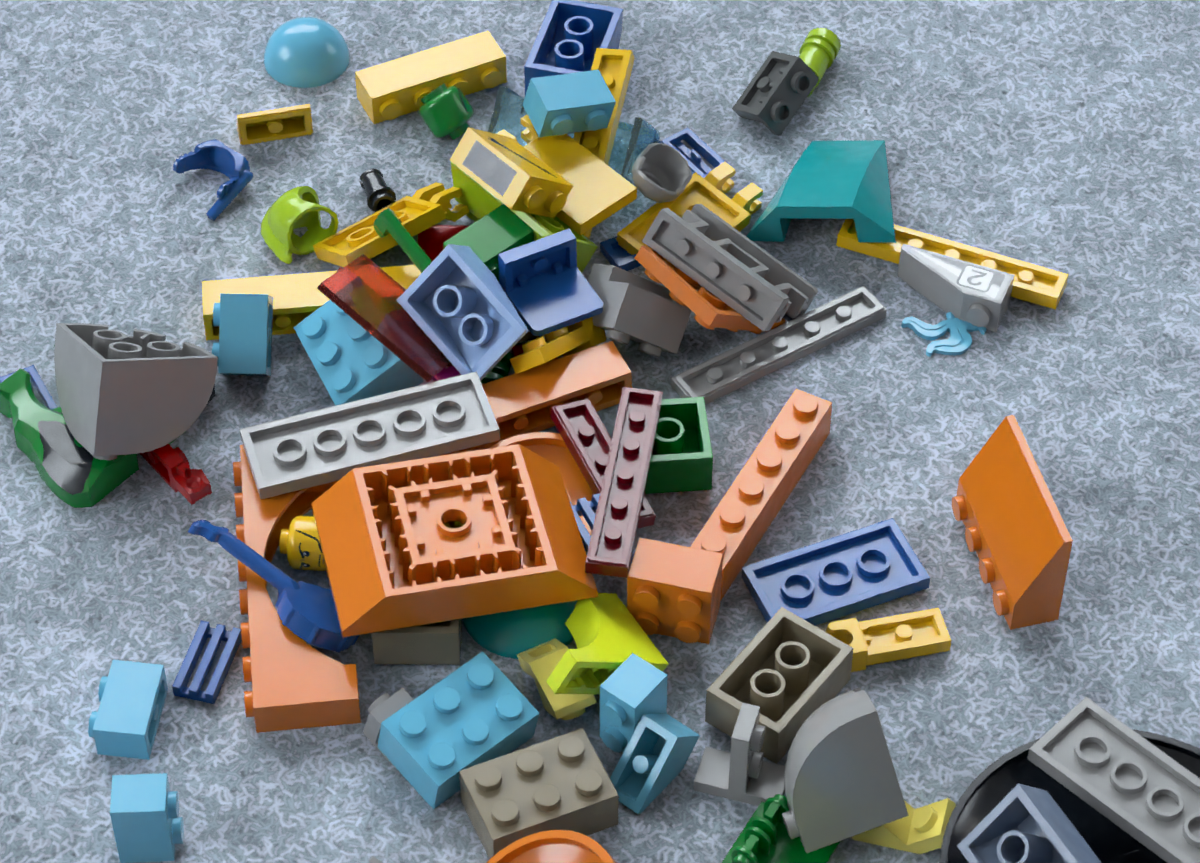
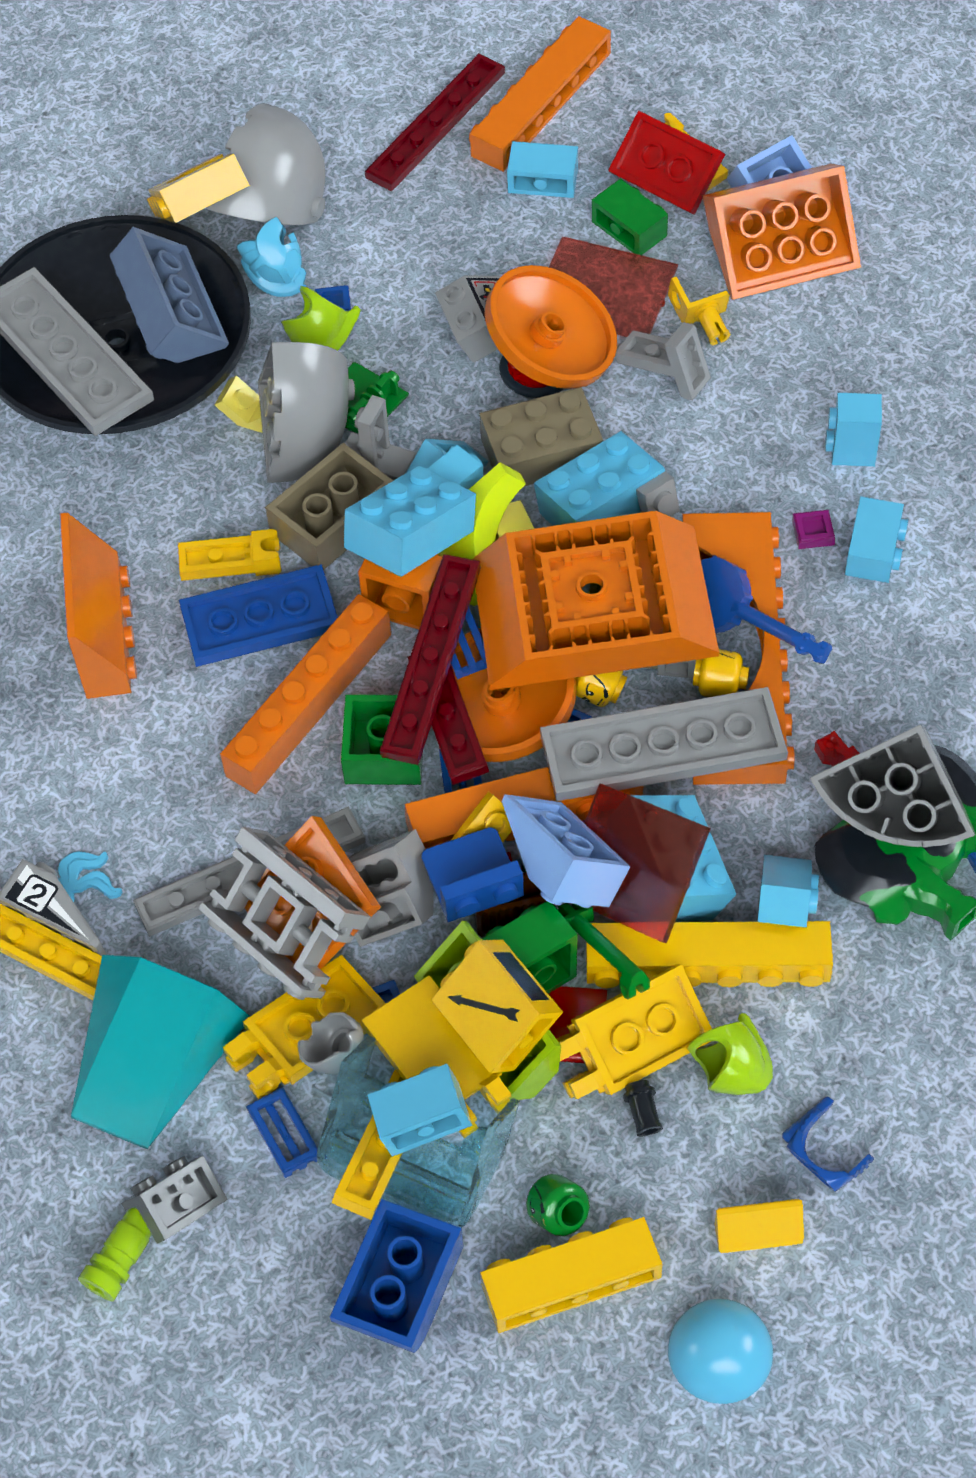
camera: 170 degrees left, 10 degrees up
(202, 732) = (813, 529): none -> magenta tile
(217, 635) = (820, 565): tile -> none
(671, 587) = (409, 520): none -> medium azure brick

